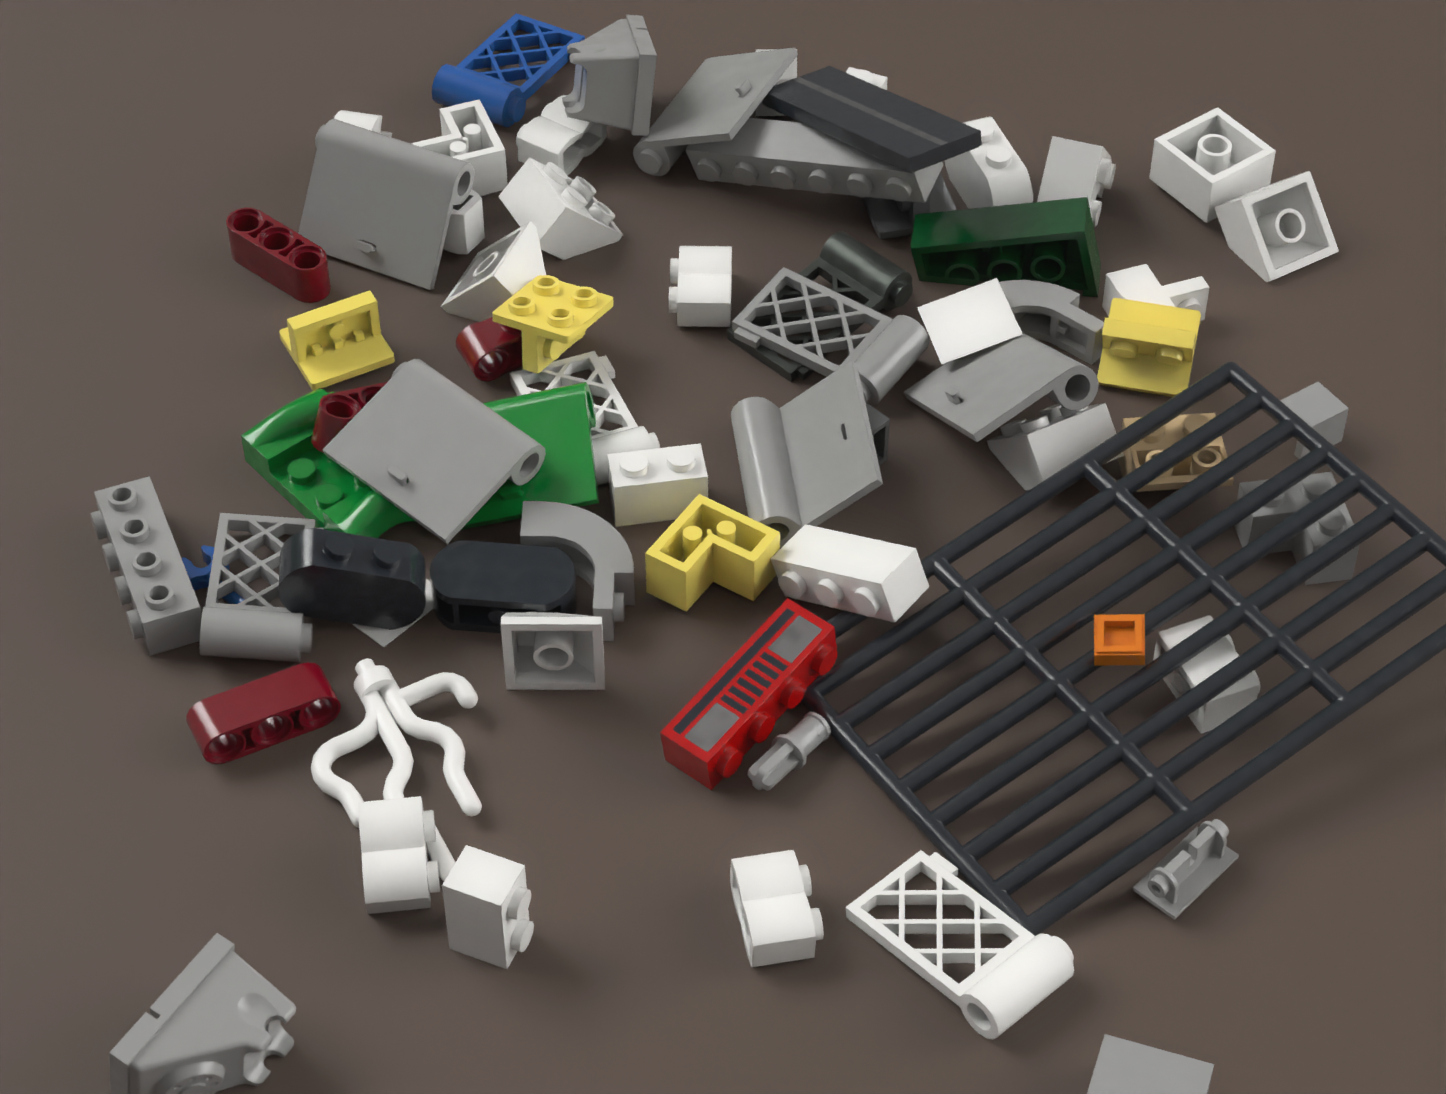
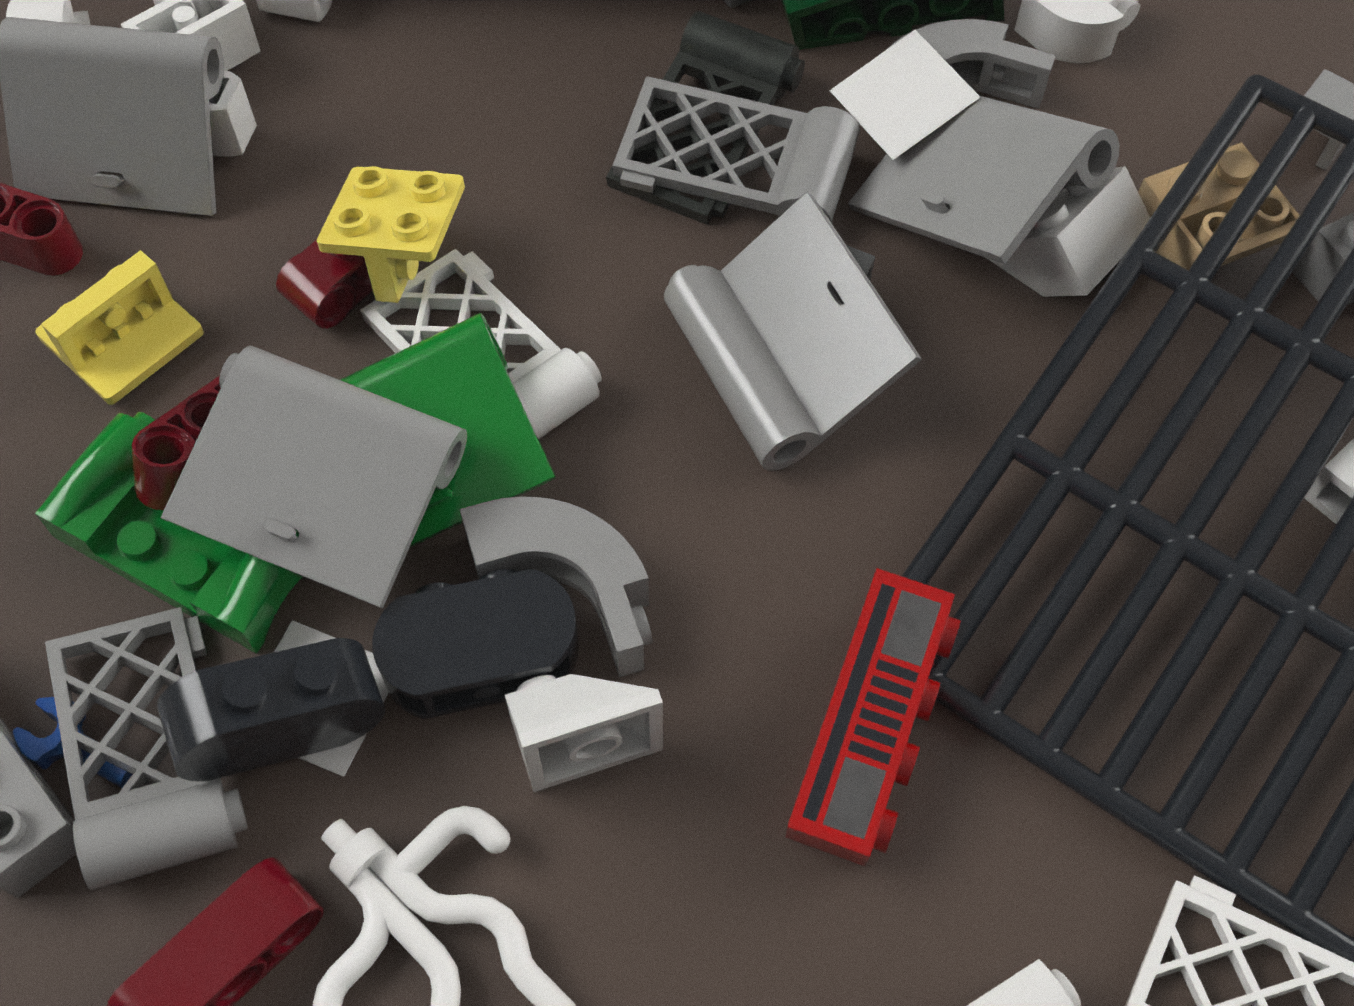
camera: 20 degrees left, 15 degrees up
(497, 274) = (296, 178): white slope -> none
(561, 208) = (337, 67): white slope -> none
(655, 483) = (617, 425): white brick -> none
(703, 286) = (556, 125): white brick -> none
(707, 547) = (728, 500): light yellow brick -> none
(789, 751) = (948, 783): light grey axle -> none
(850, 572) = (923, 494): white brick -> none
(1119, 639) = (1303, 499): orange tile -> none
(1148, 347) = (1113, 70): light yellow bracket -> none

